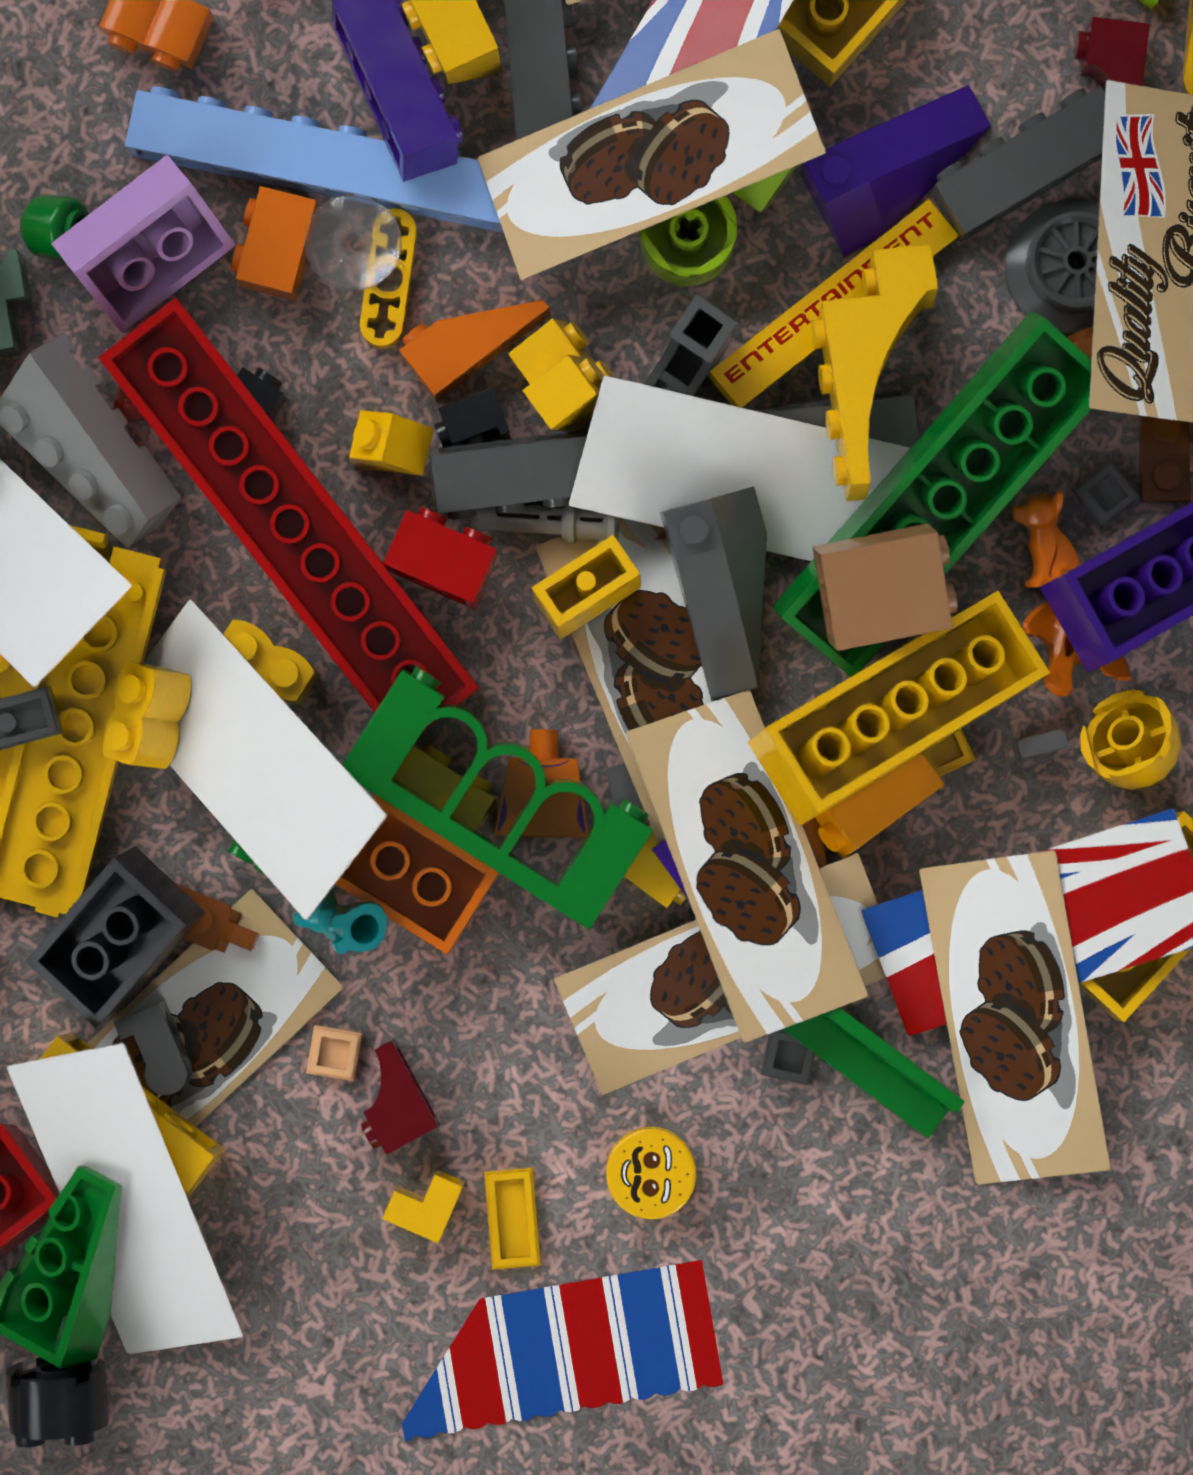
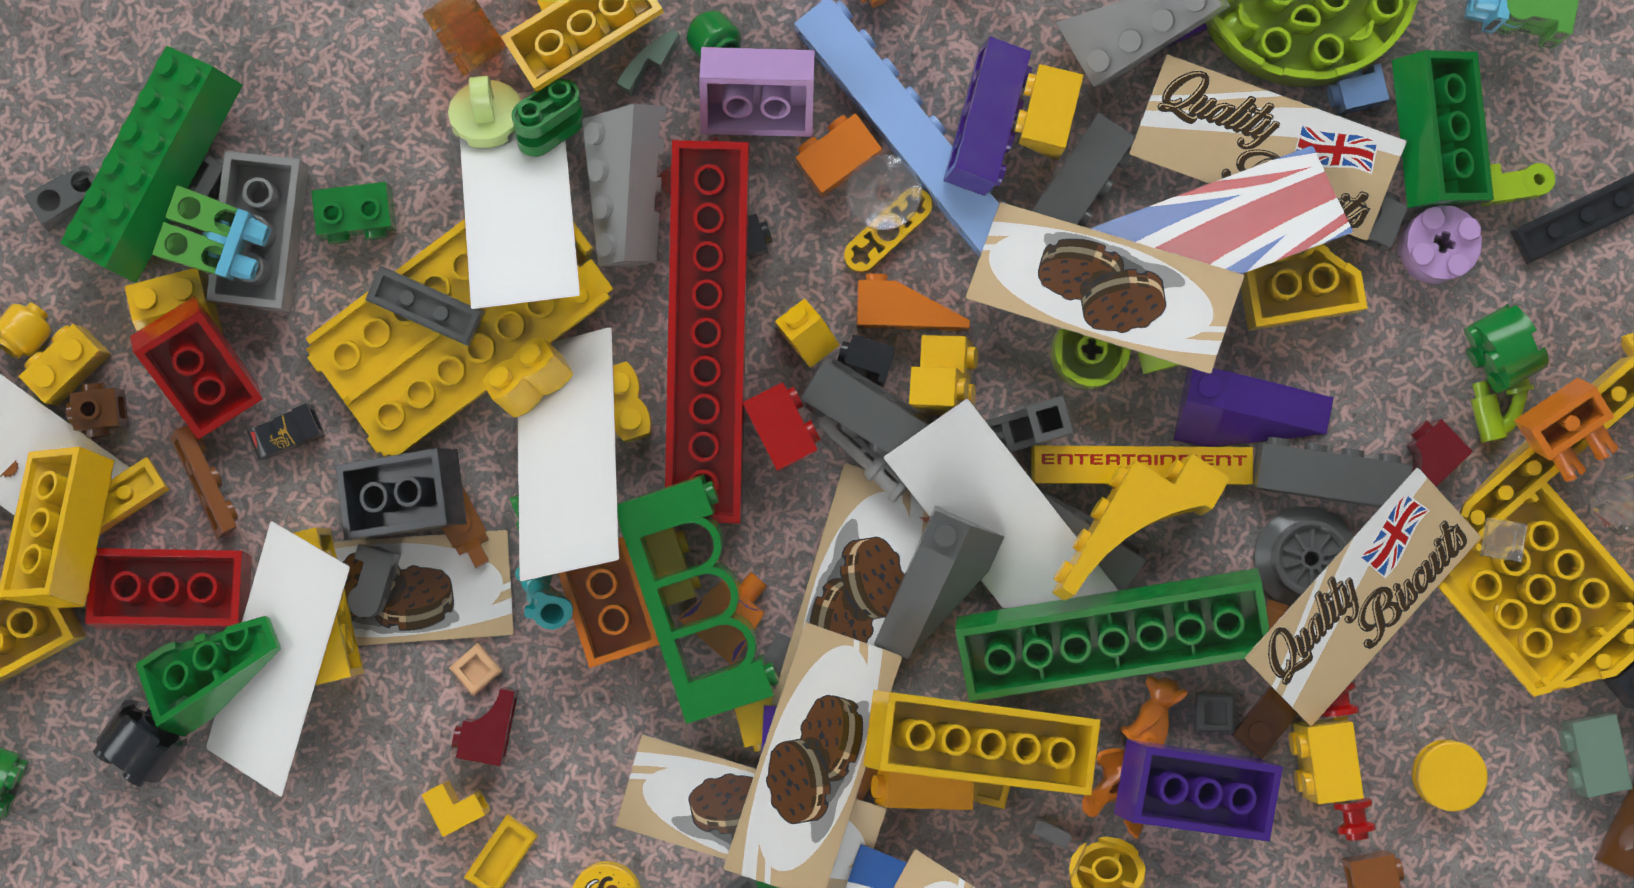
camera: 30 degrees right, 0 degrees up
(586, 587) = (854, 515): yellow brick -> none
(884, 586) = (1032, 663): medium nougat brick -> none

